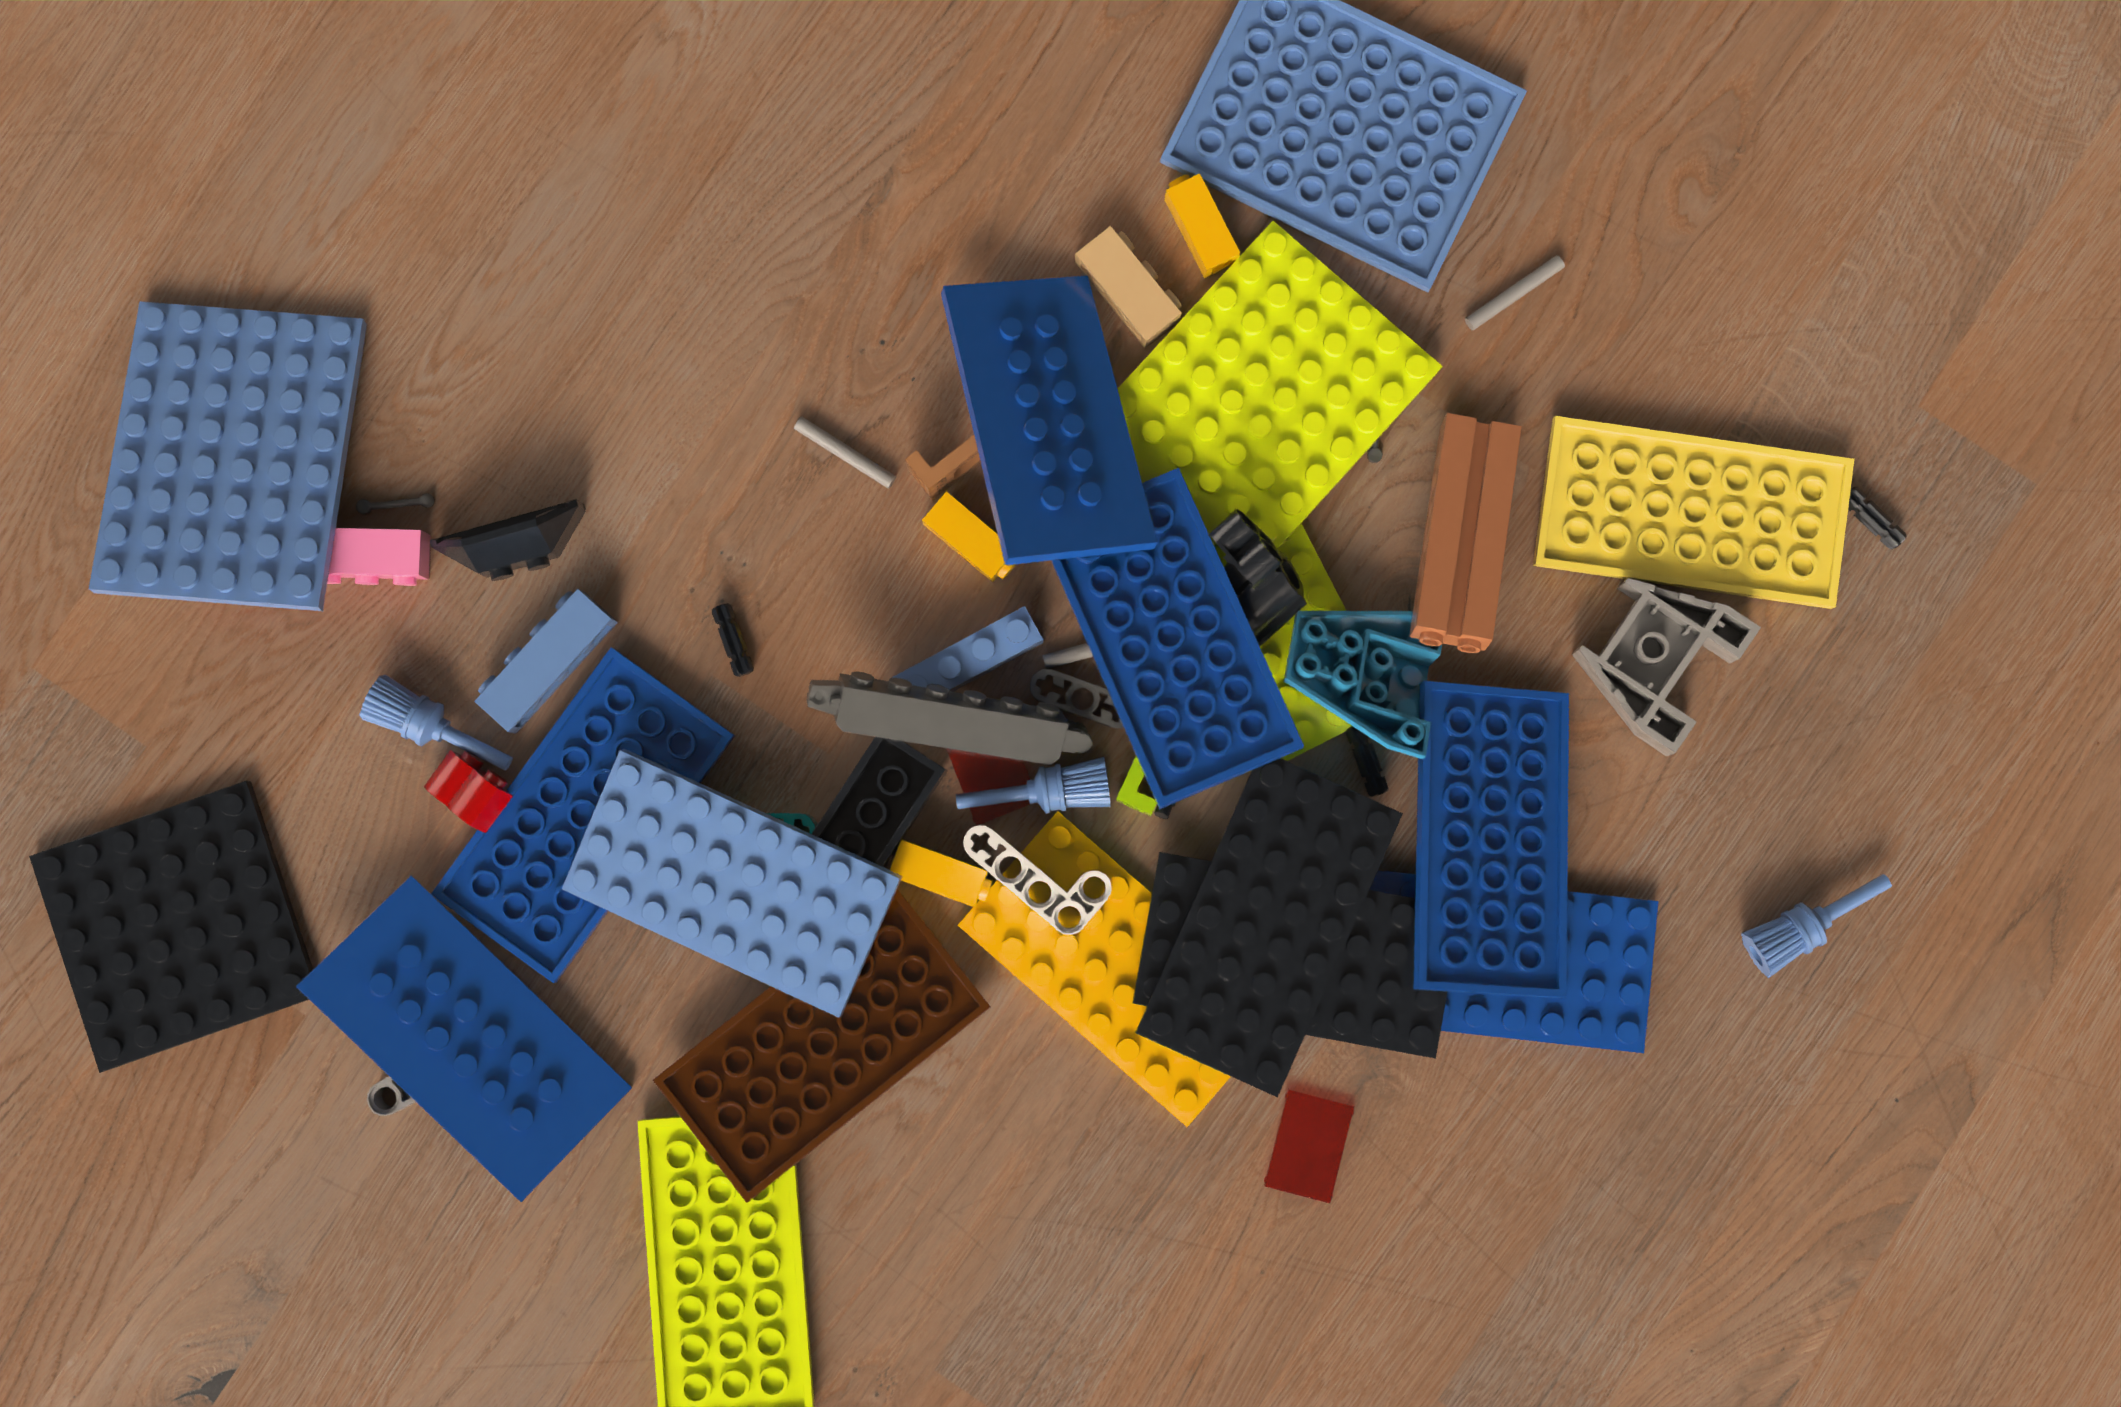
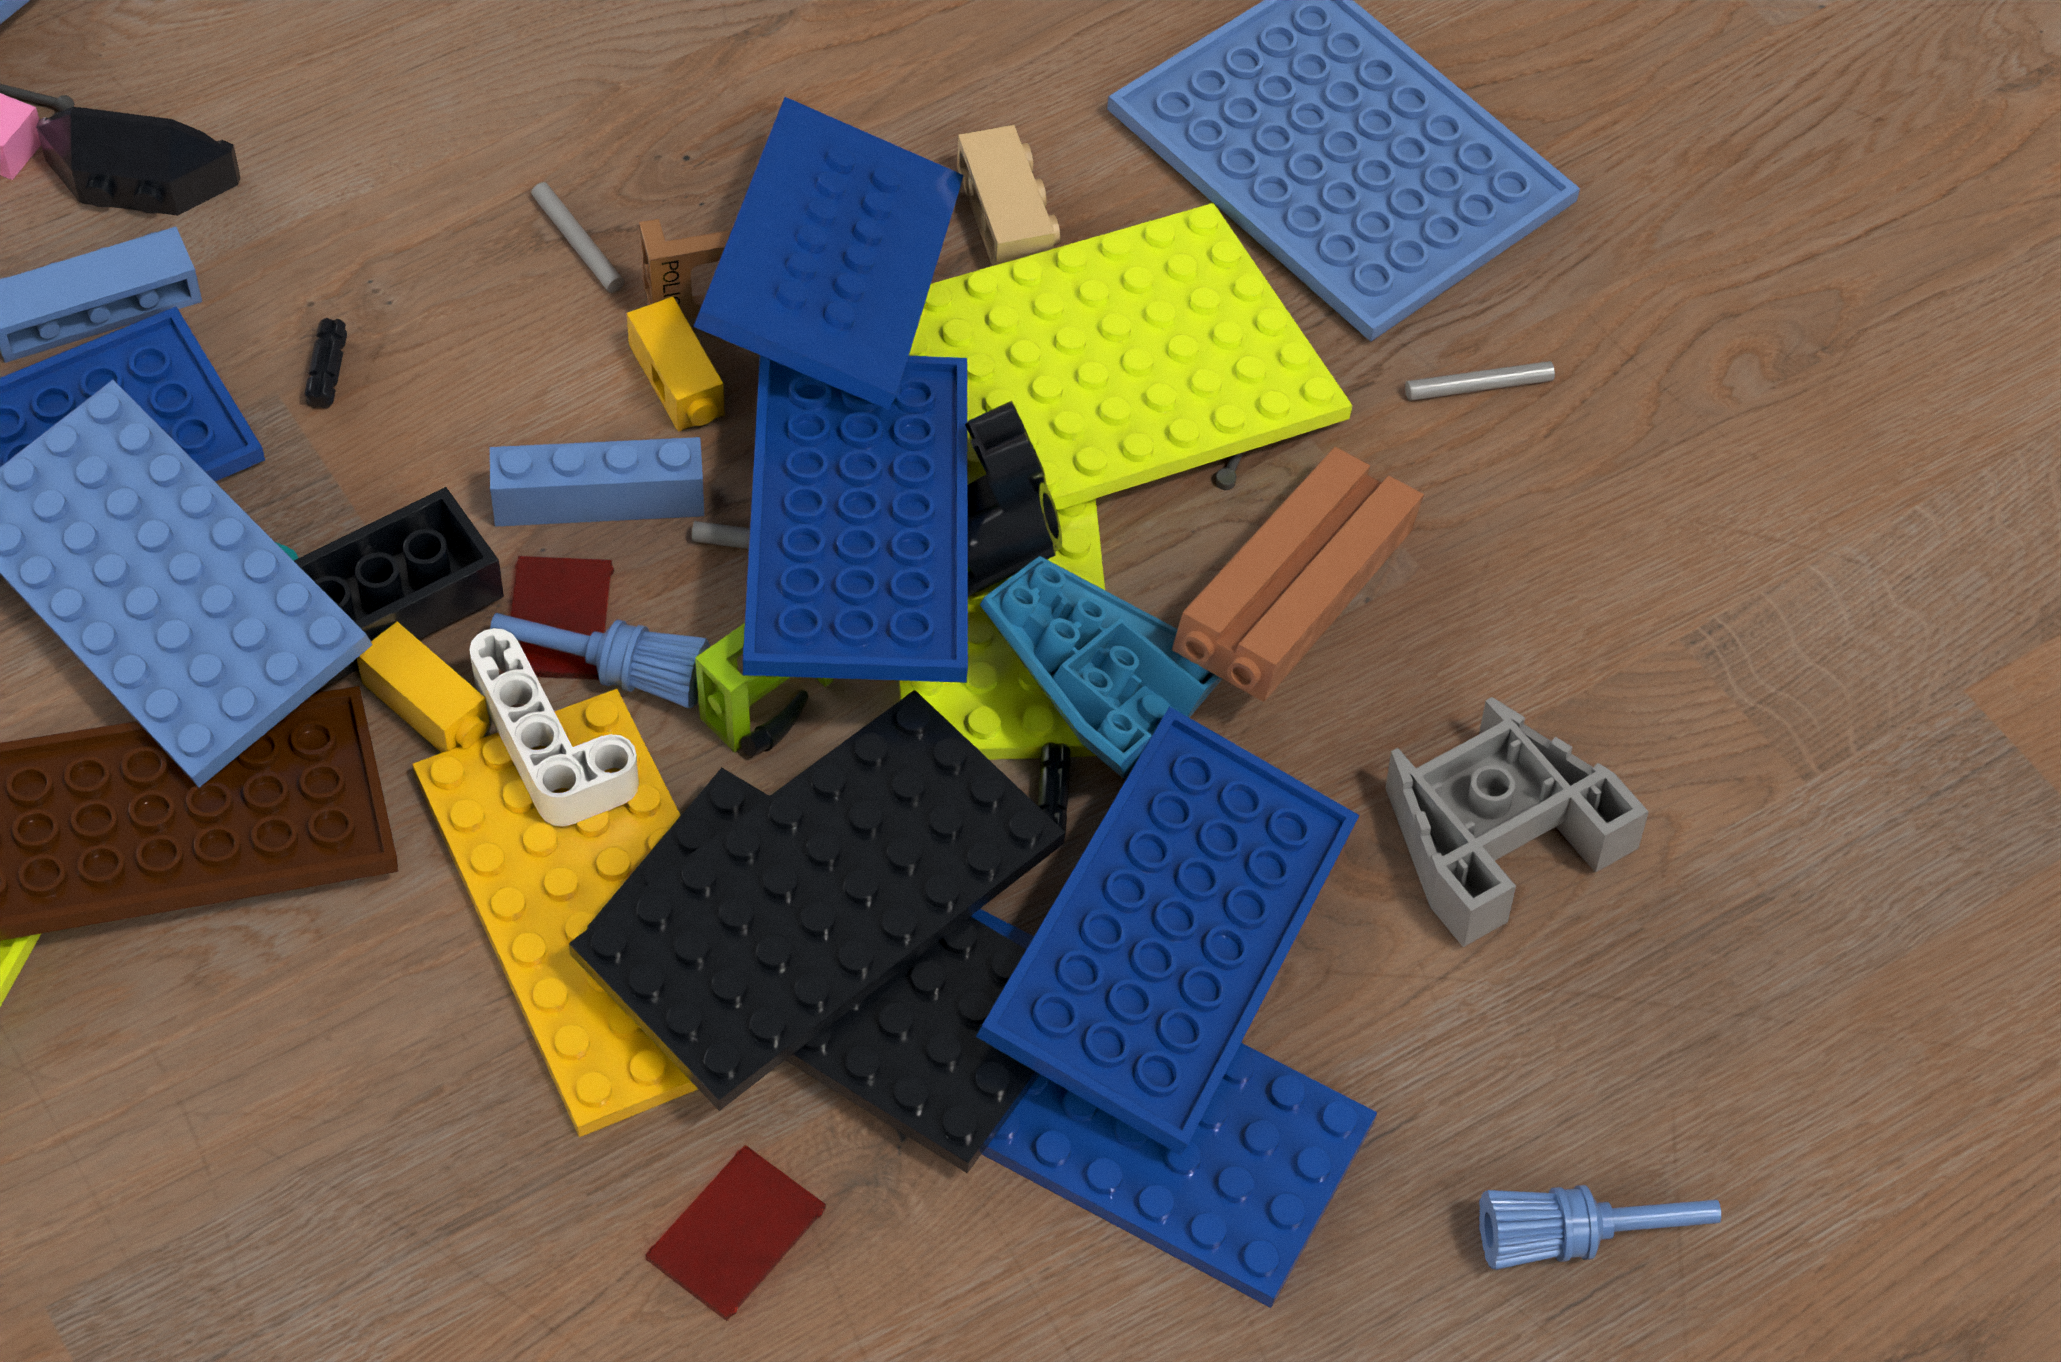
camera: 20 degrees right, 30 degrees down
(948, 718) = (535, 508): dark grey hinge -> none
(1052, 697) = (710, 564): dark grey beam -> none
(1201, 224) = (1124, 172): yellow brick -> none
(1693, 512) = (1621, 679): light yellow plate -> none
(1875, 519) = (1857, 782): black axle -> none

